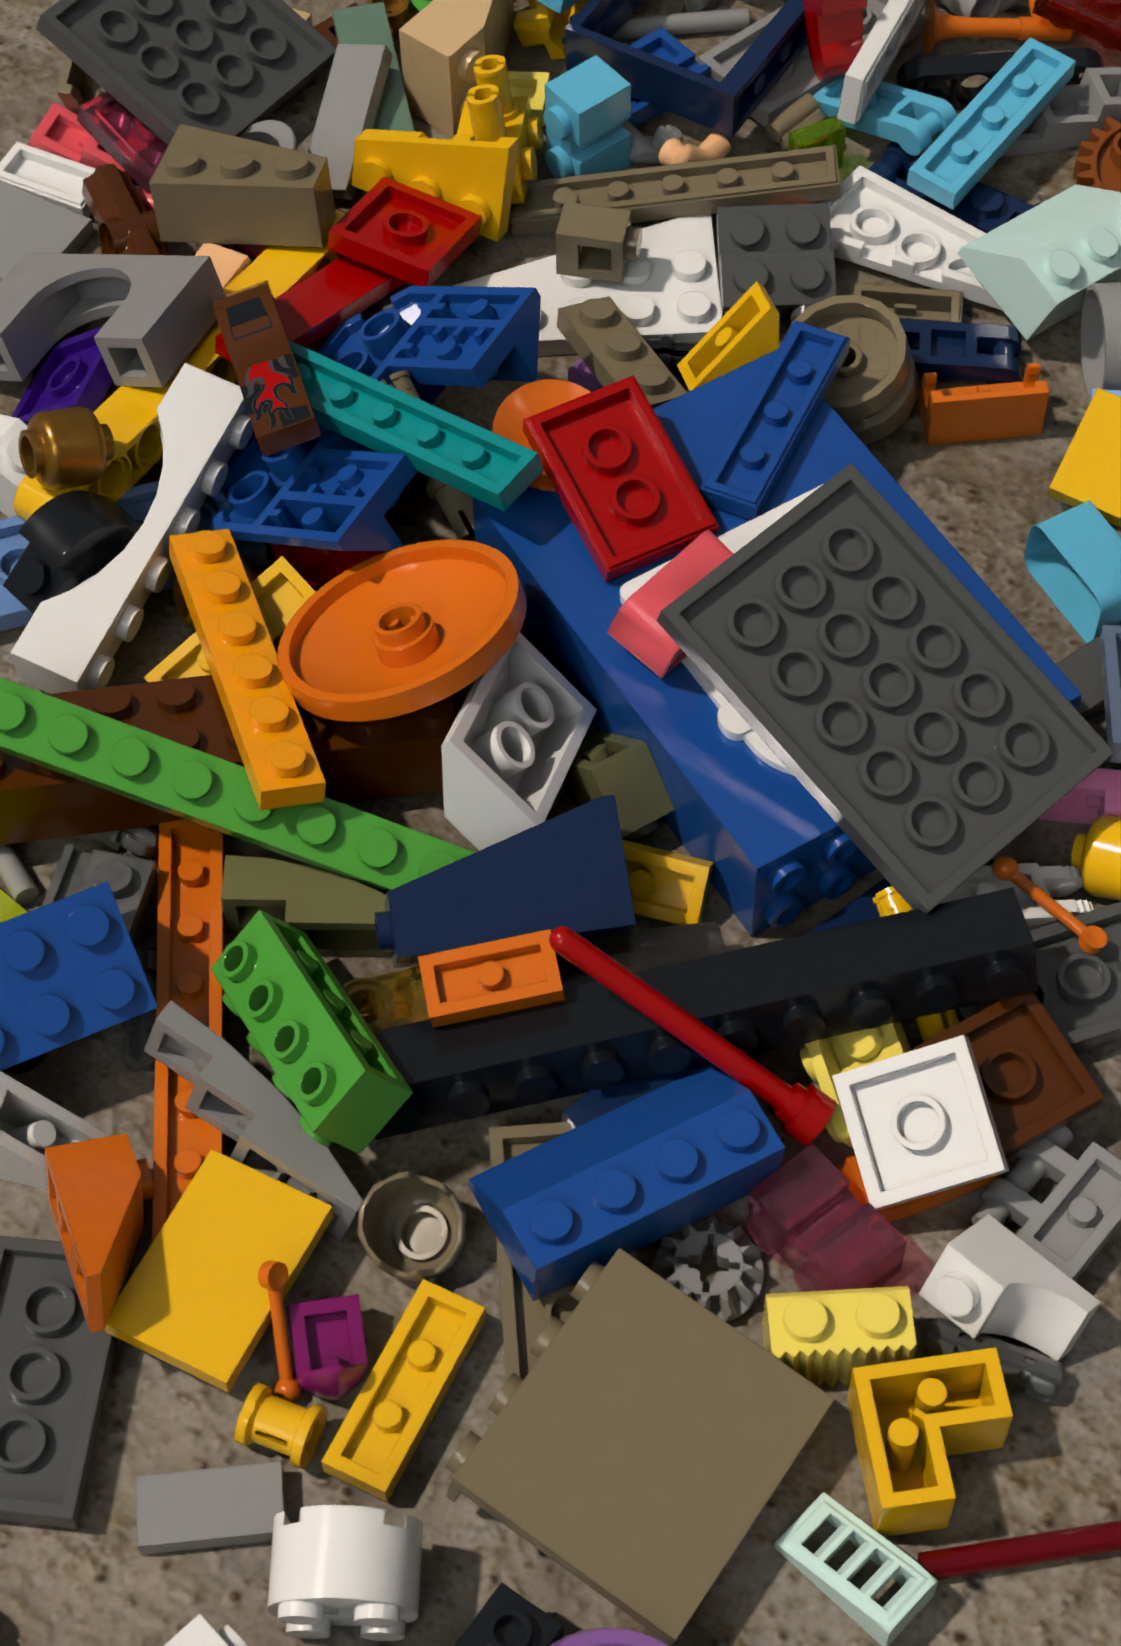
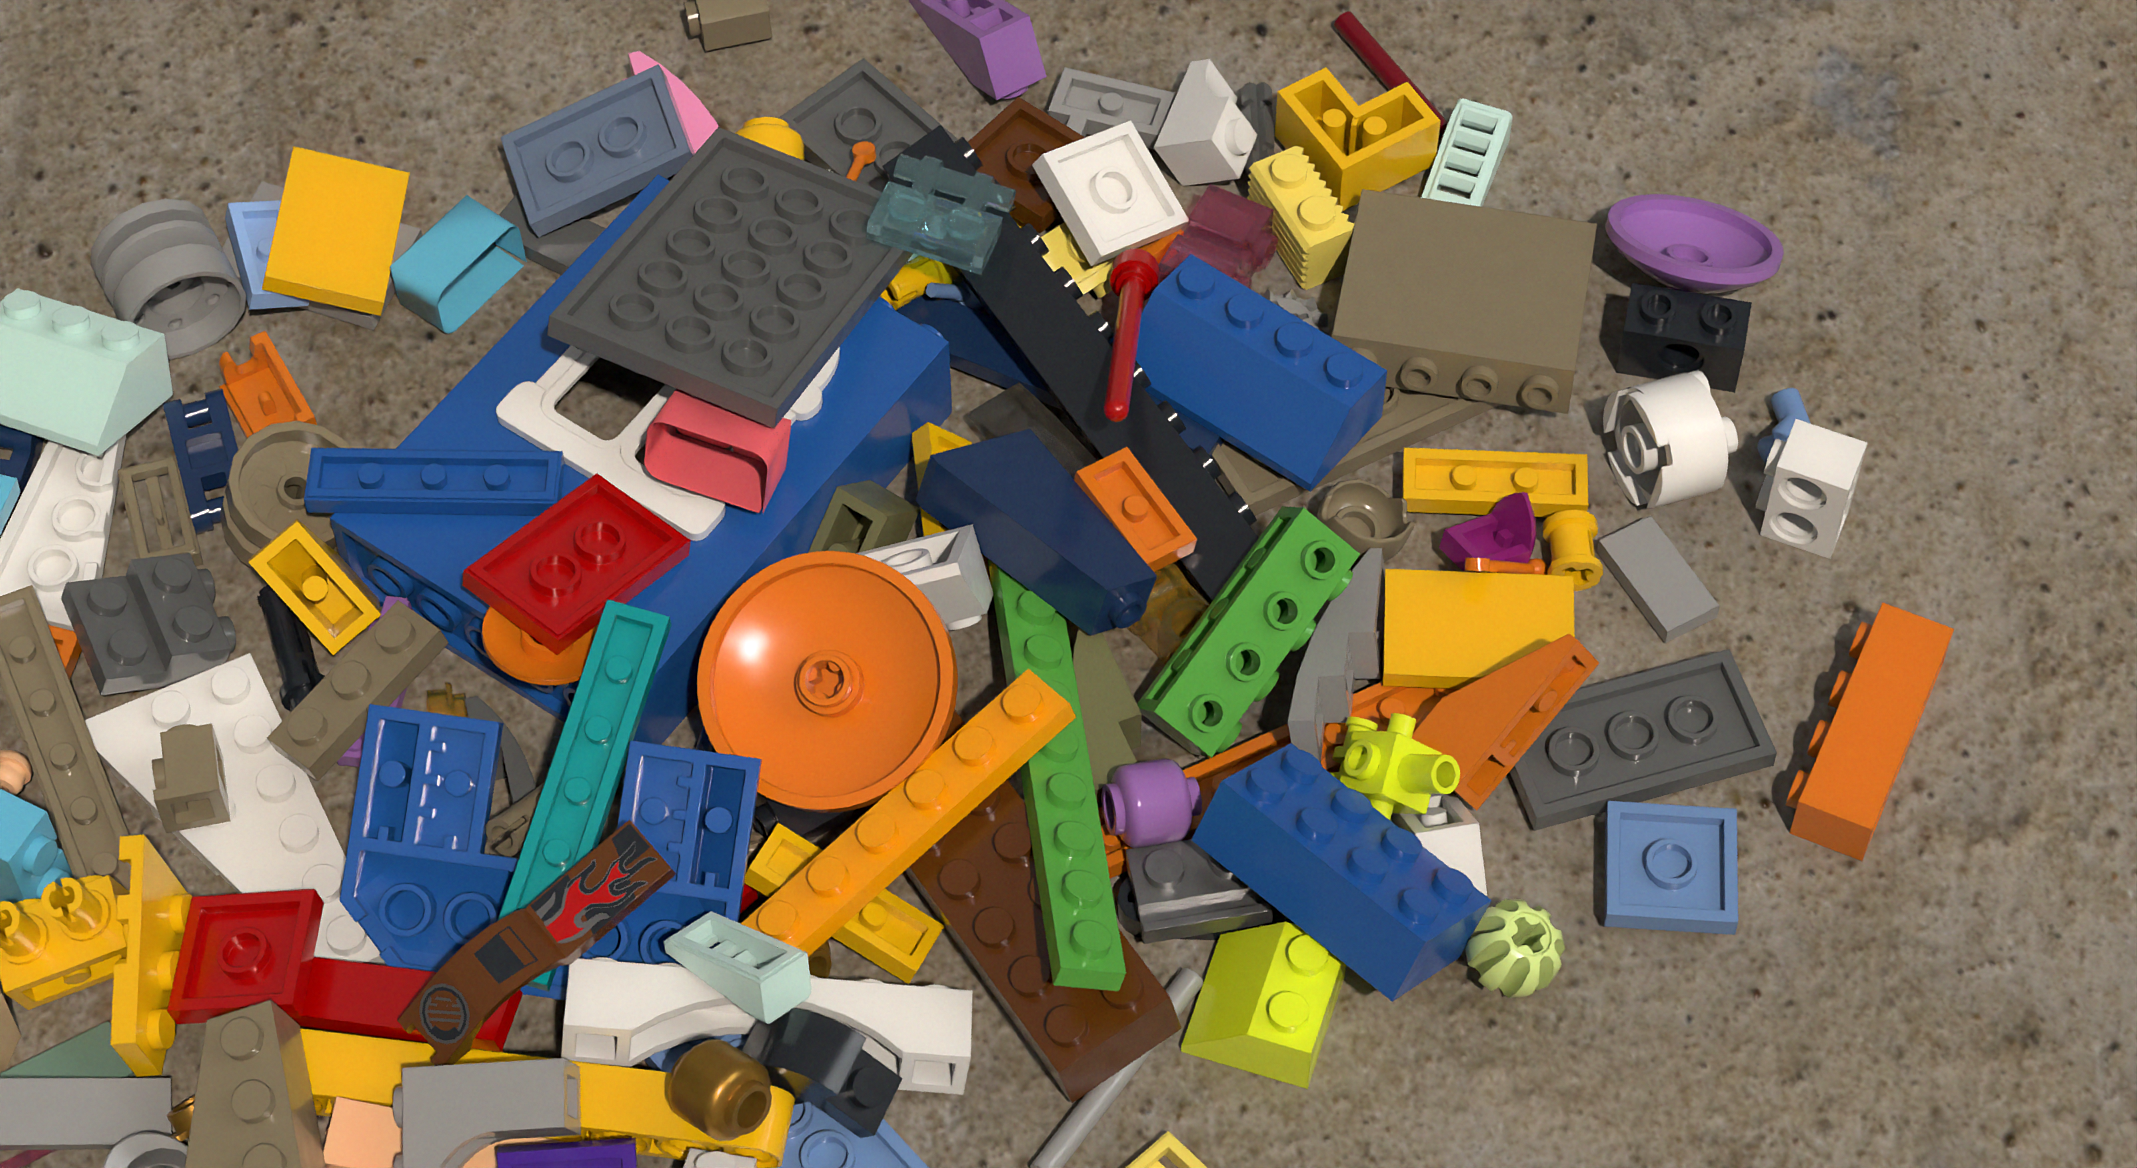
camera: 115 degrees left, 0 degrees up
(92, 1091) = (1392, 766): none -> neon yellow piece
(139, 513) = (746, 968): none -> light aqua slope
(178, 884) = (1150, 803): none -> medium lavender head
(890, 879) = (936, 226): none -> clear light blue plate

